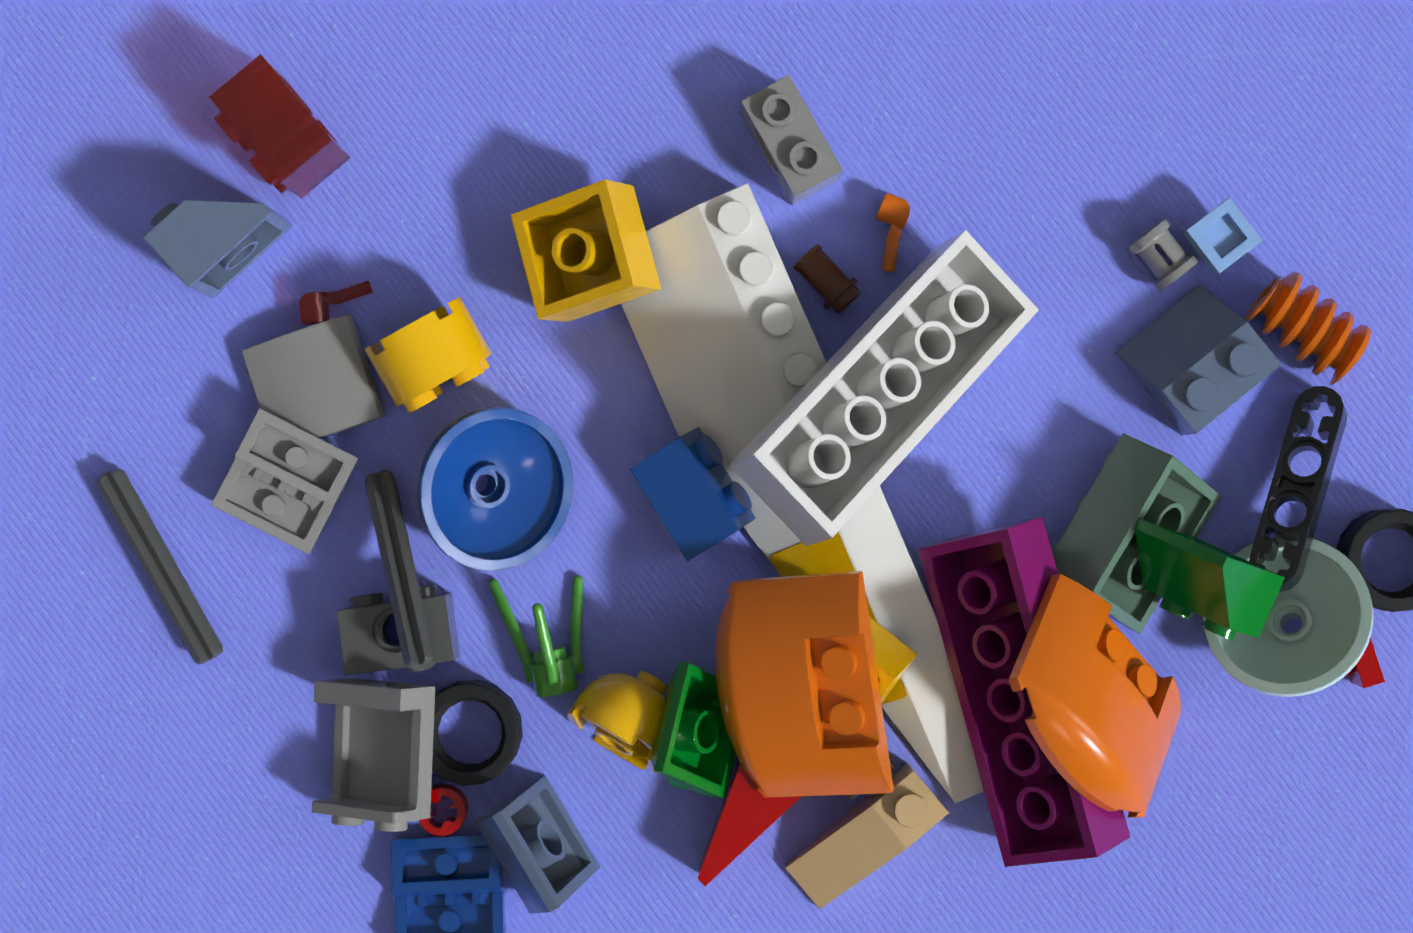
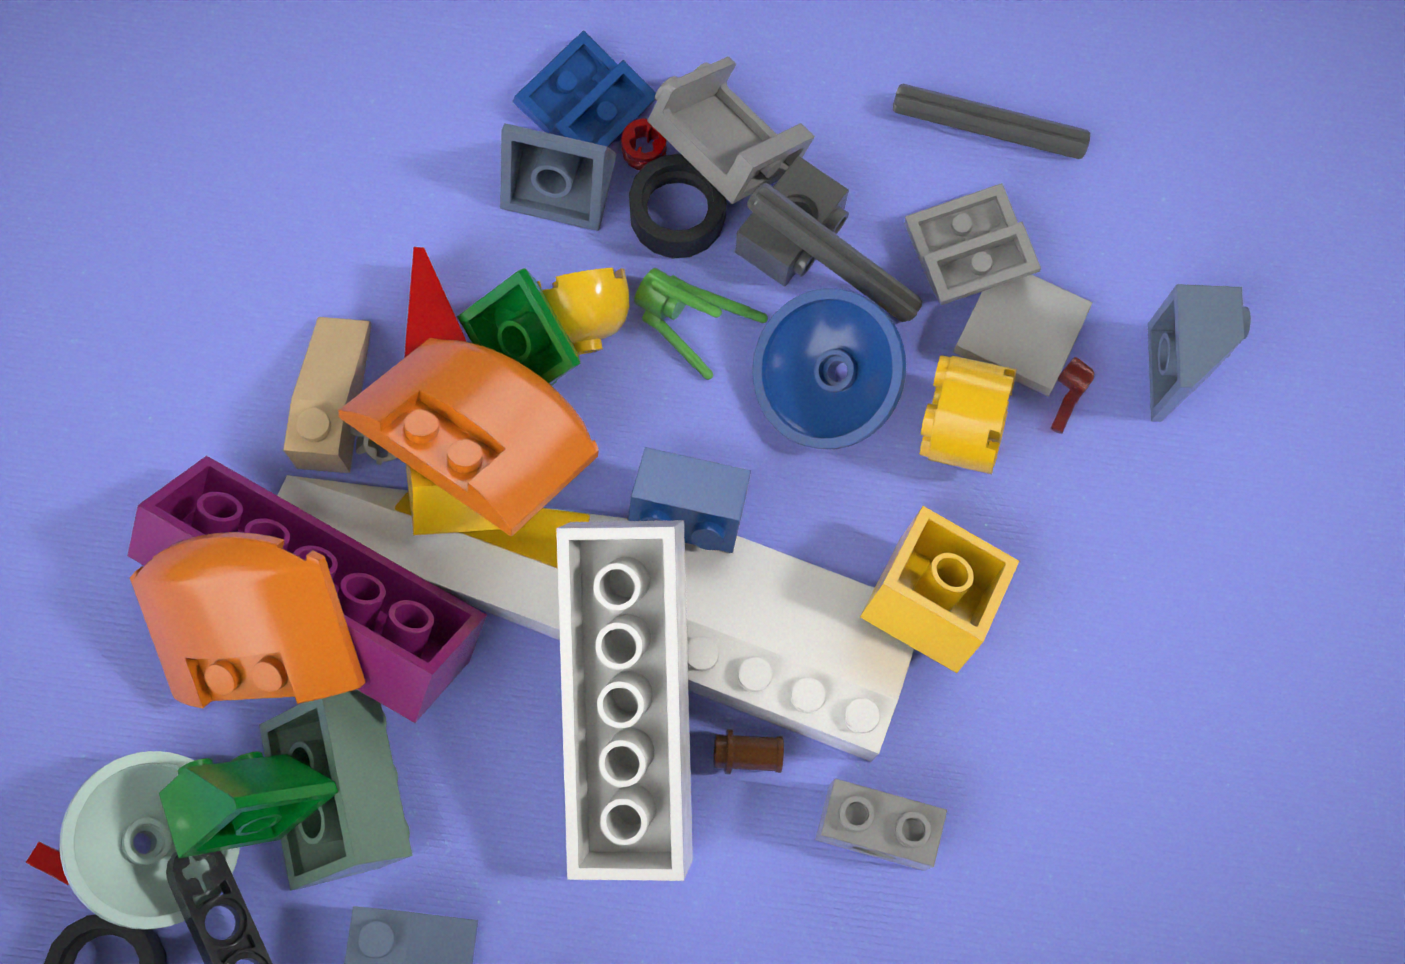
camera: 130 degrees right, 15 degrees down
(274, 121) = (1255, 458): clear red piece -> none
(895, 213) = (748, 855): orange hand -> none

